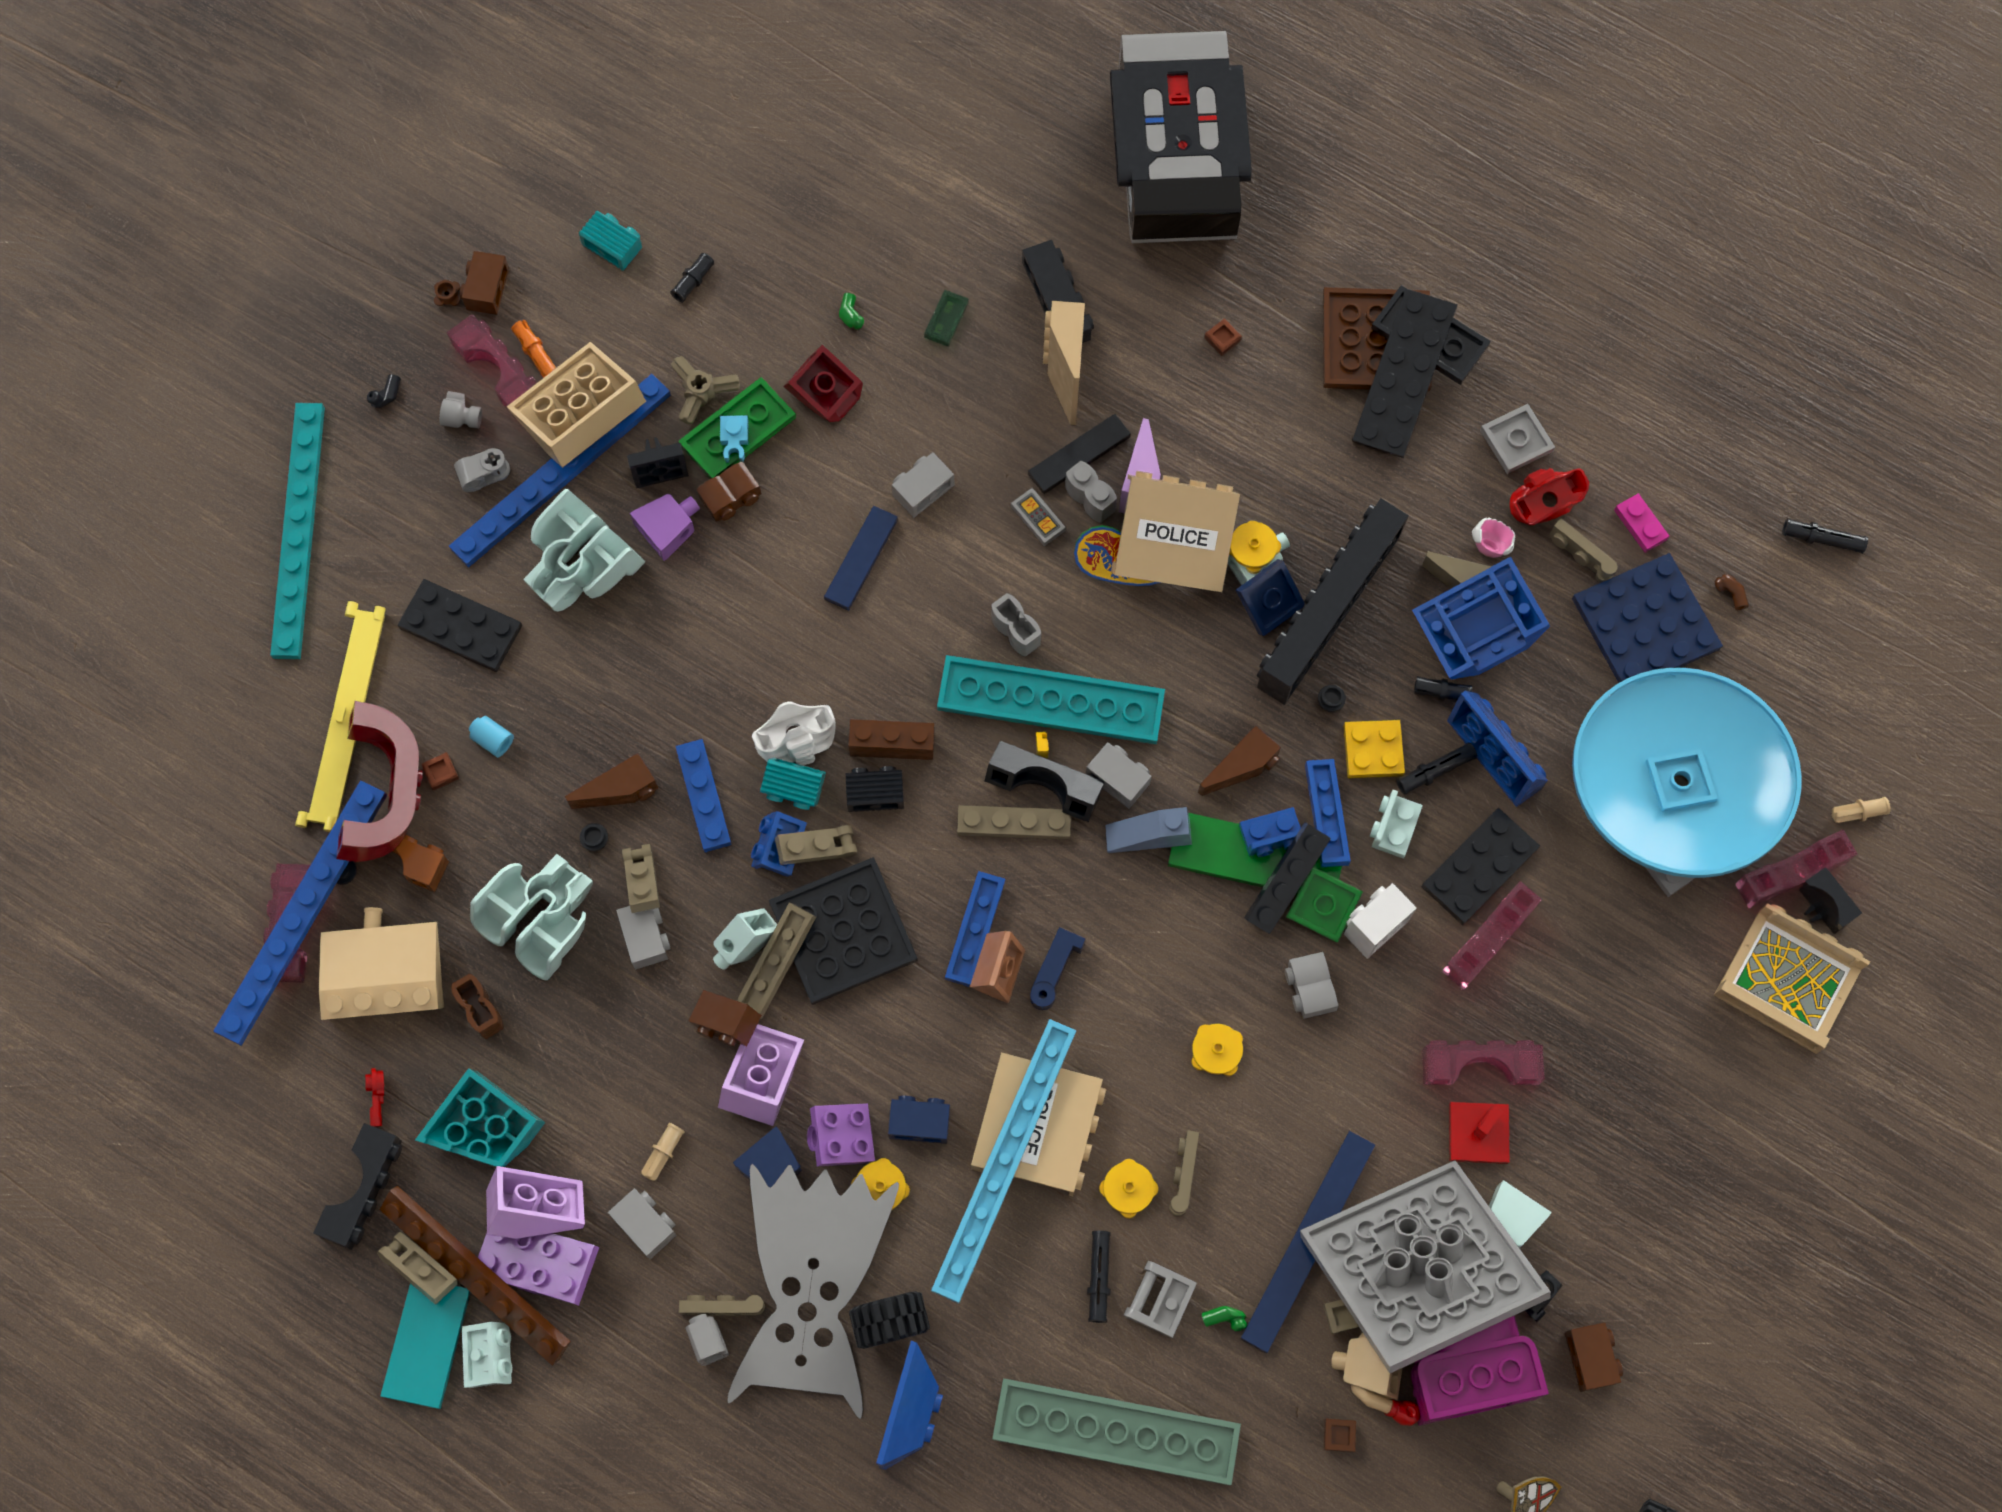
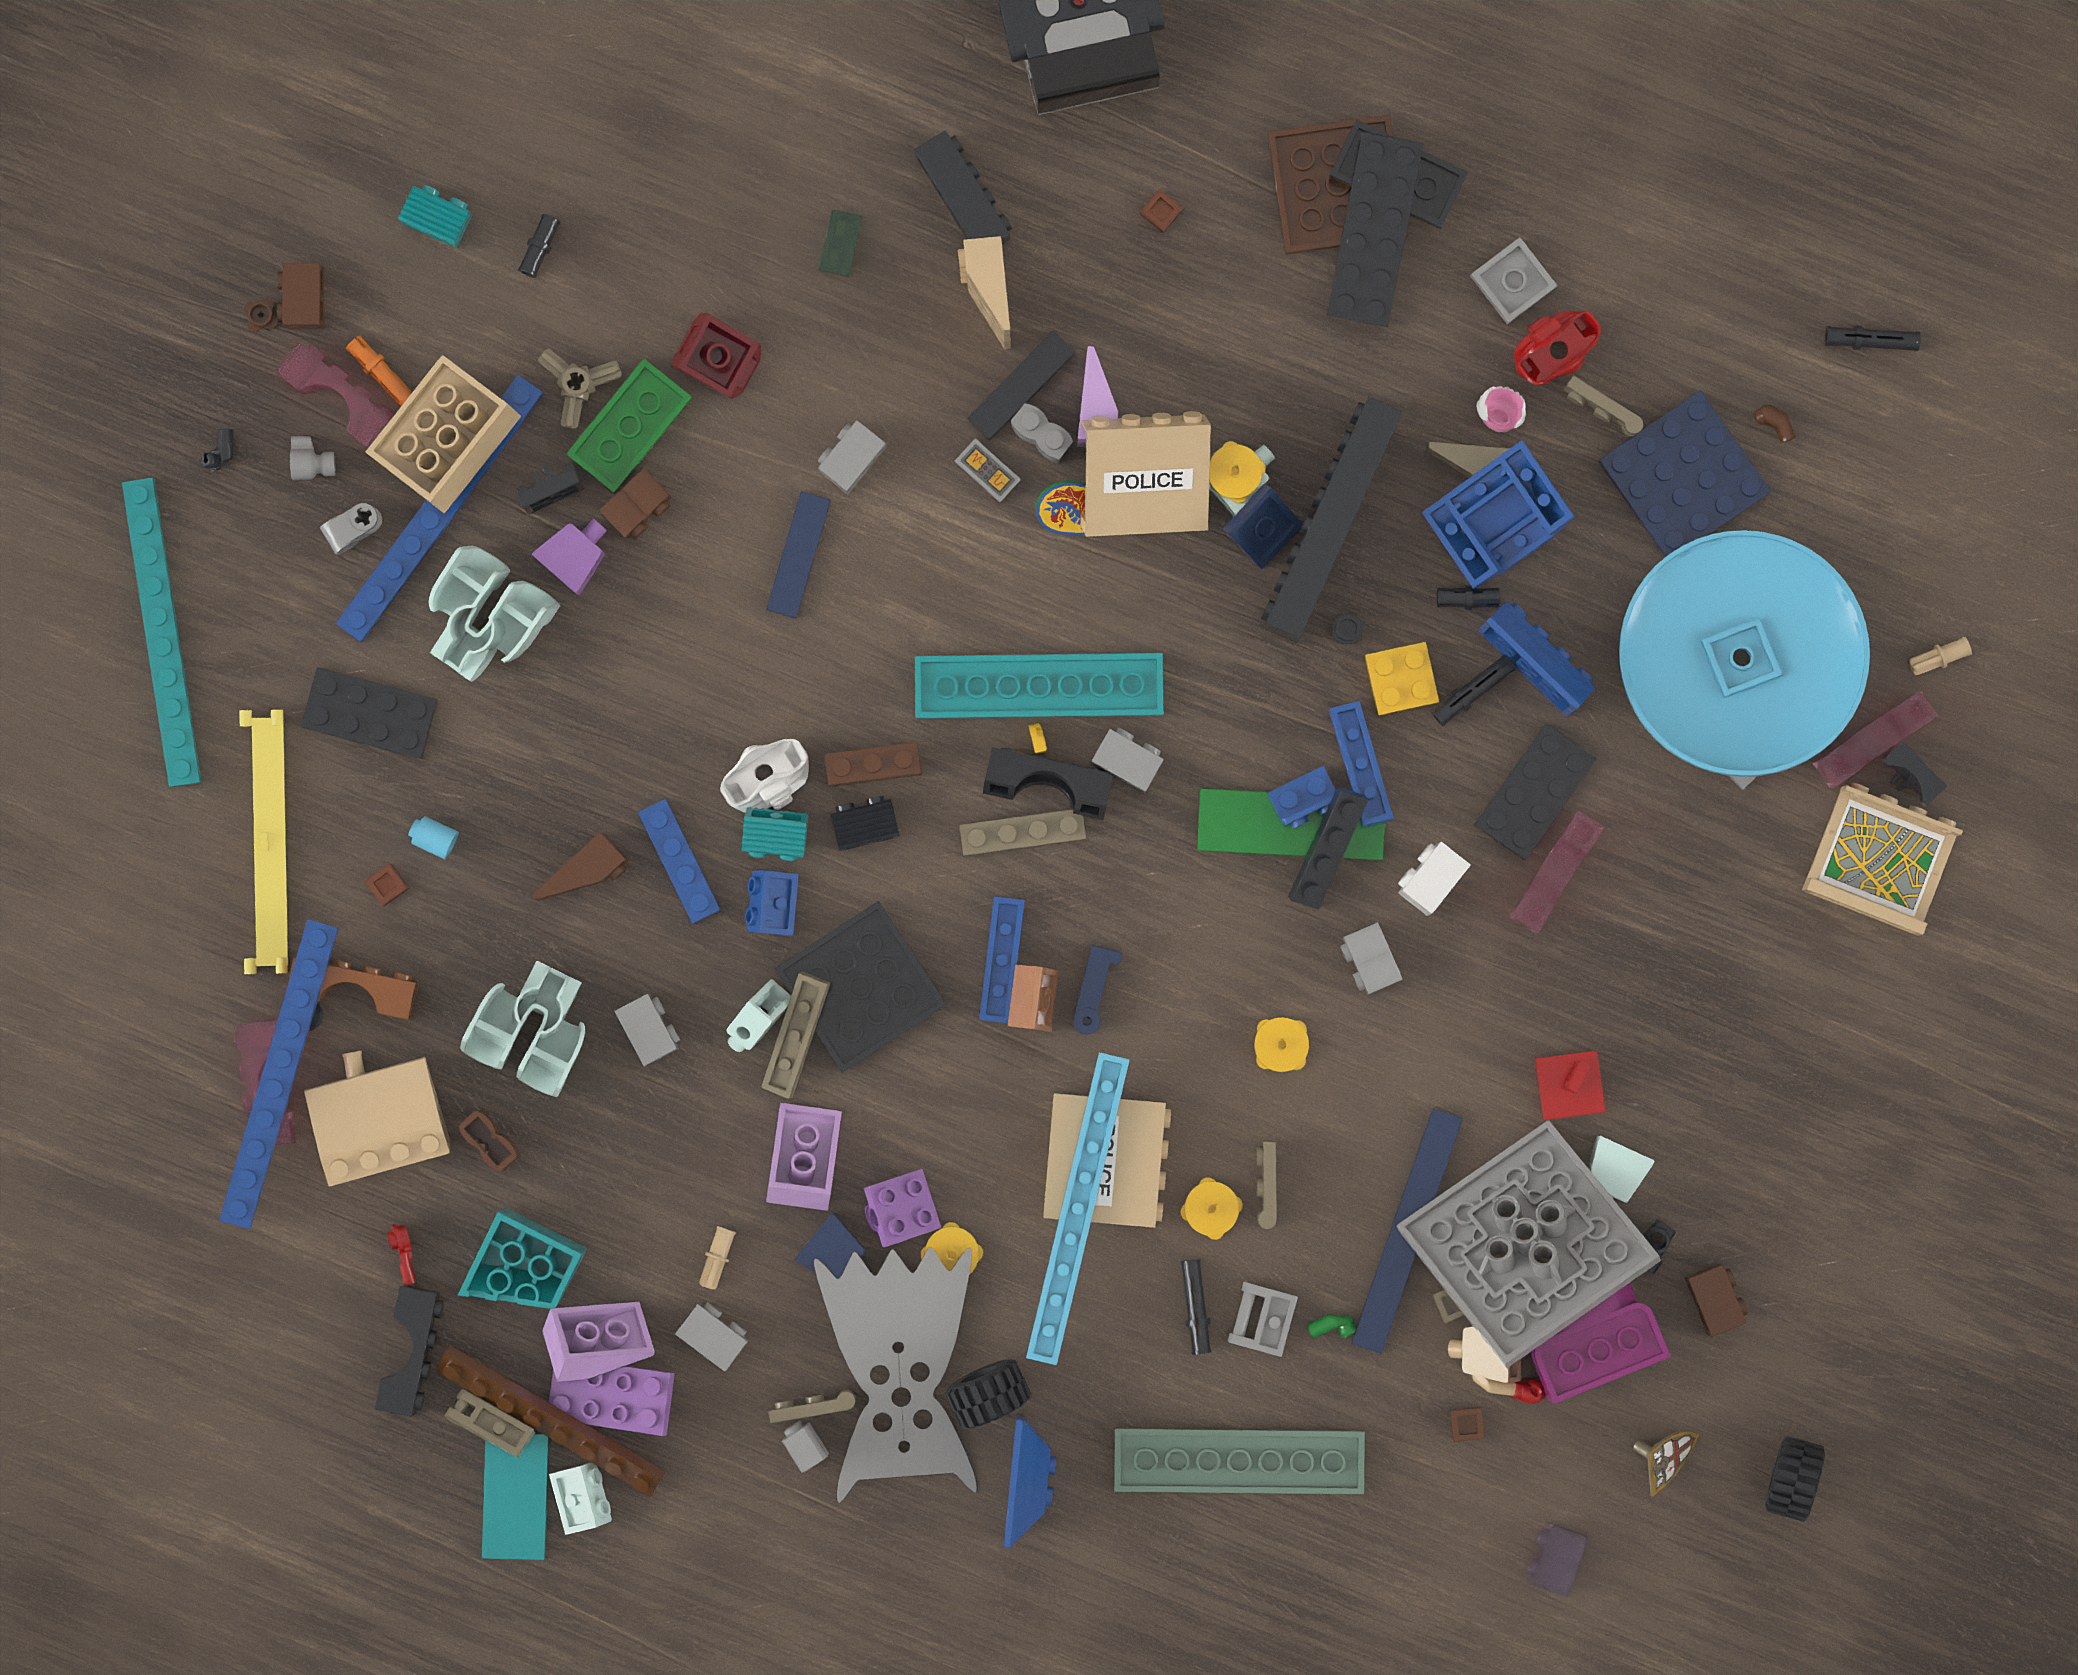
camera: 10 degrees left, 15 degrees up
(389, 733) = (358, 932): arch -> none
(593, 837) = (570, 930): black plate -> none
(641, 879) = (633, 971): dark tan plate -> none
(724, 1018) = (754, 1108): reddish brown brick -> none
(734, 434) = (627, 435): medium azure plate -> none
(815, 845) = (812, 899): dark tan plate -> none
(848, 314) = (726, 259): green arm -> none
(919, 1120) = (980, 1178): dark blue brick -> none
(1019, 627) = (978, 603): light grey brick -> none
(1150, 831) = (1171, 820): sand blue slope -> none
(1244, 762) = (1265, 718): reddish brown slope -> none
(1324, 904) = (1372, 867): green tile -> none
(1396, 825) = (1438, 762): light aqua bracket -> none
(1519, 1062) = (1525, 1018): clear pink arch -> none
(1641, 523) = (1665, 357): dark pink plate -> none

